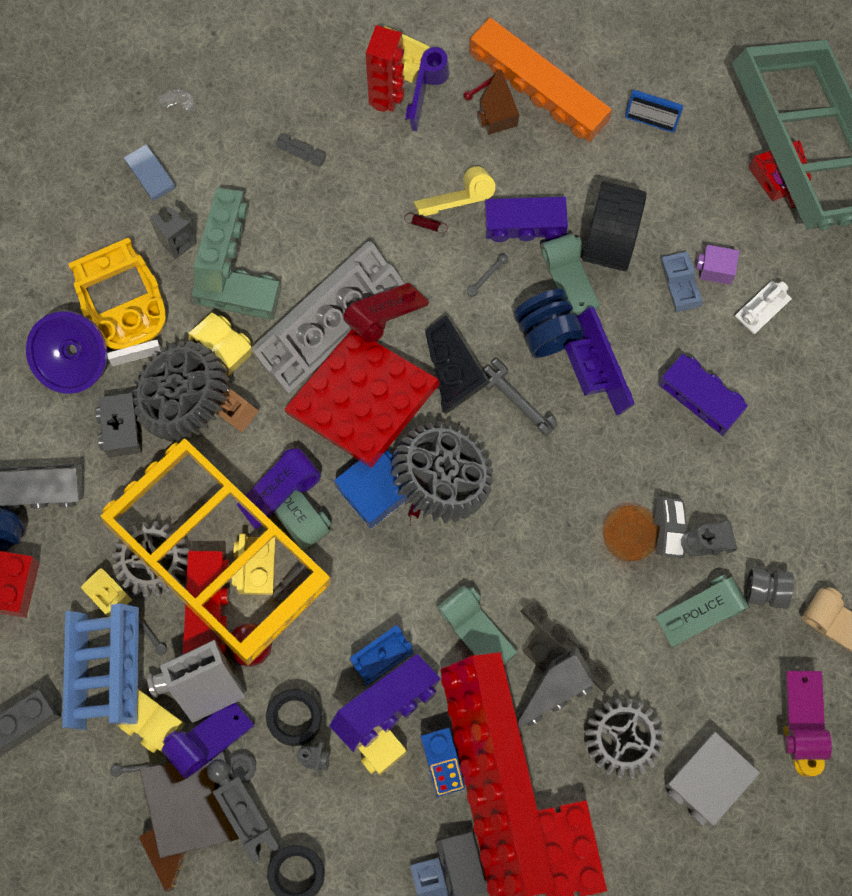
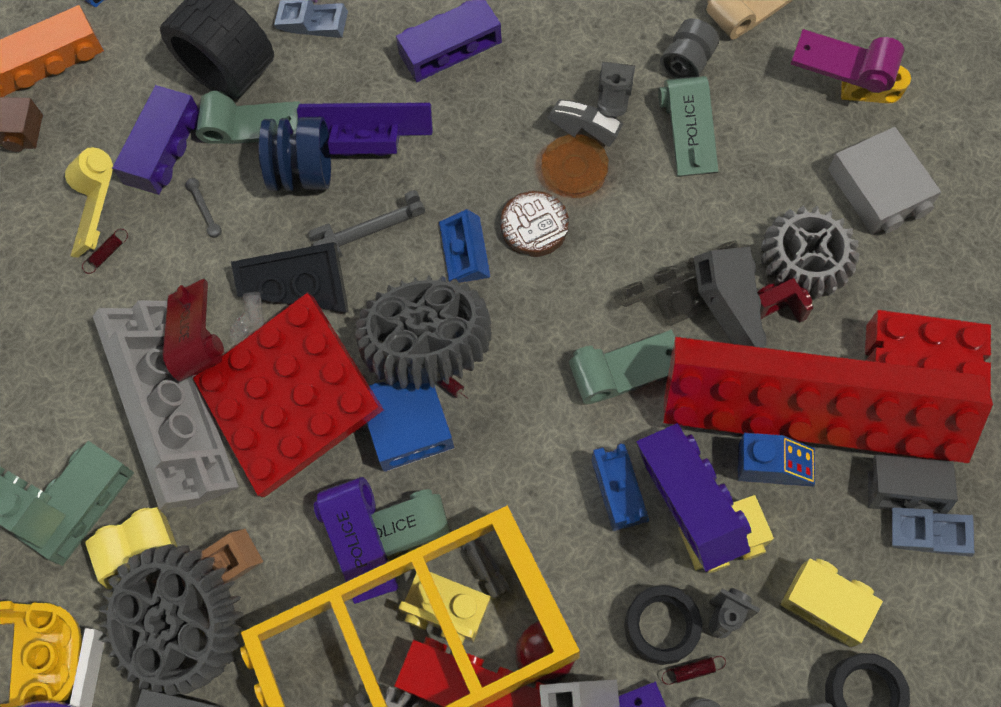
camera: 65 degrees left, 5 degrees down
(272, 750) = (694, 670): none -> dark red piece
(351, 830) = (832, 602): none -> light yellow brick
(409, 347) = (250, 320): none -> clear arm
(528, 477) = (464, 247): none -> blue slope
(569, 520) = (534, 223): none -> tile
(574, 723) = (786, 294): none -> dark red bracket

